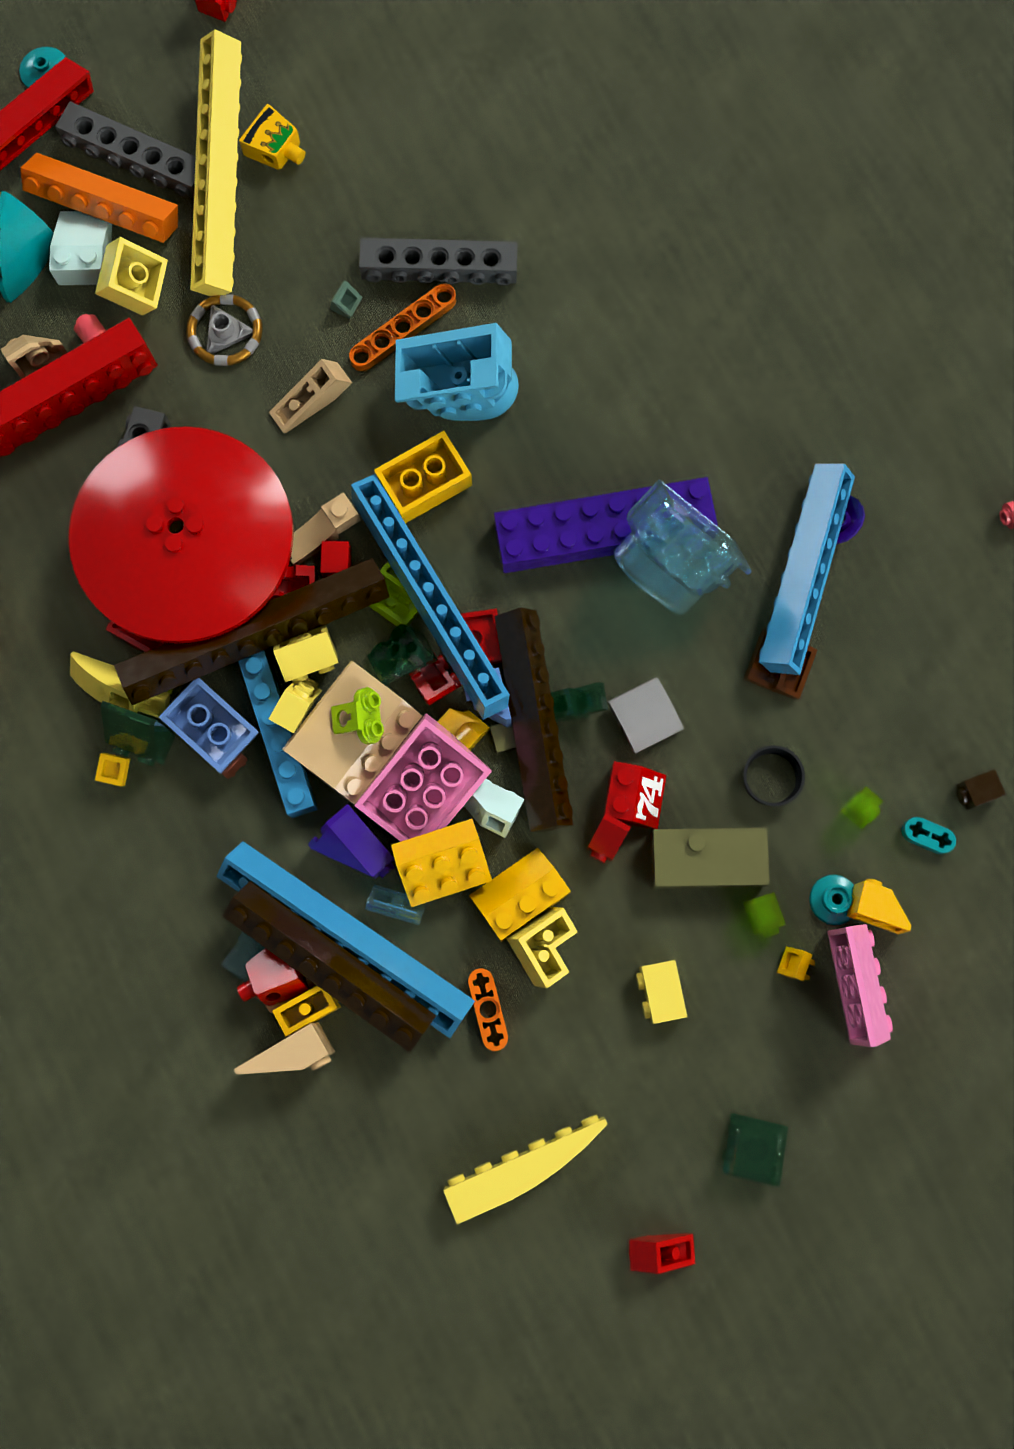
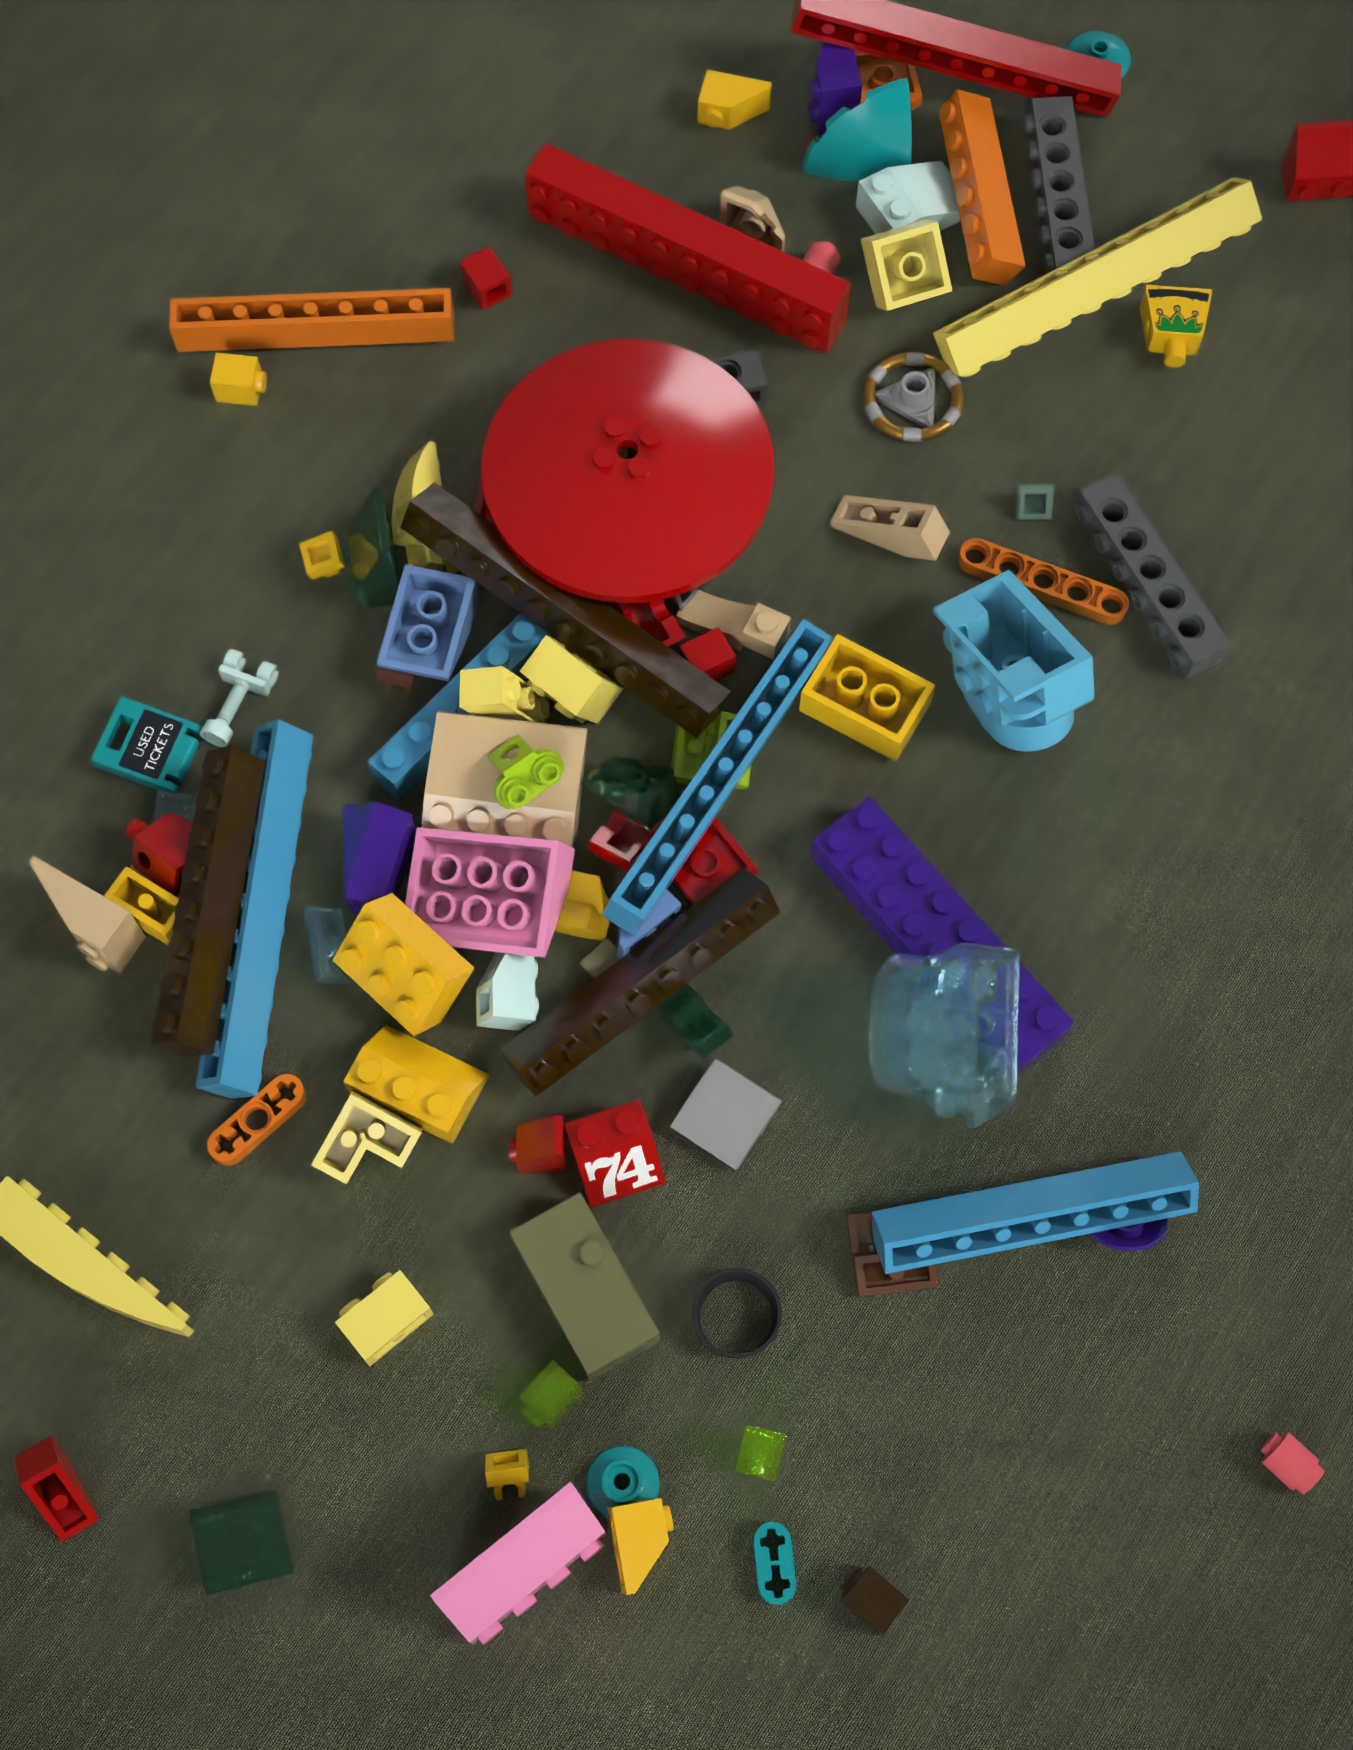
camera: 60 degrees right, 10 degrees down
(187, 952) = (153, 746): none -> teal container
(199, 902) = (218, 731): none -> light aqua bar

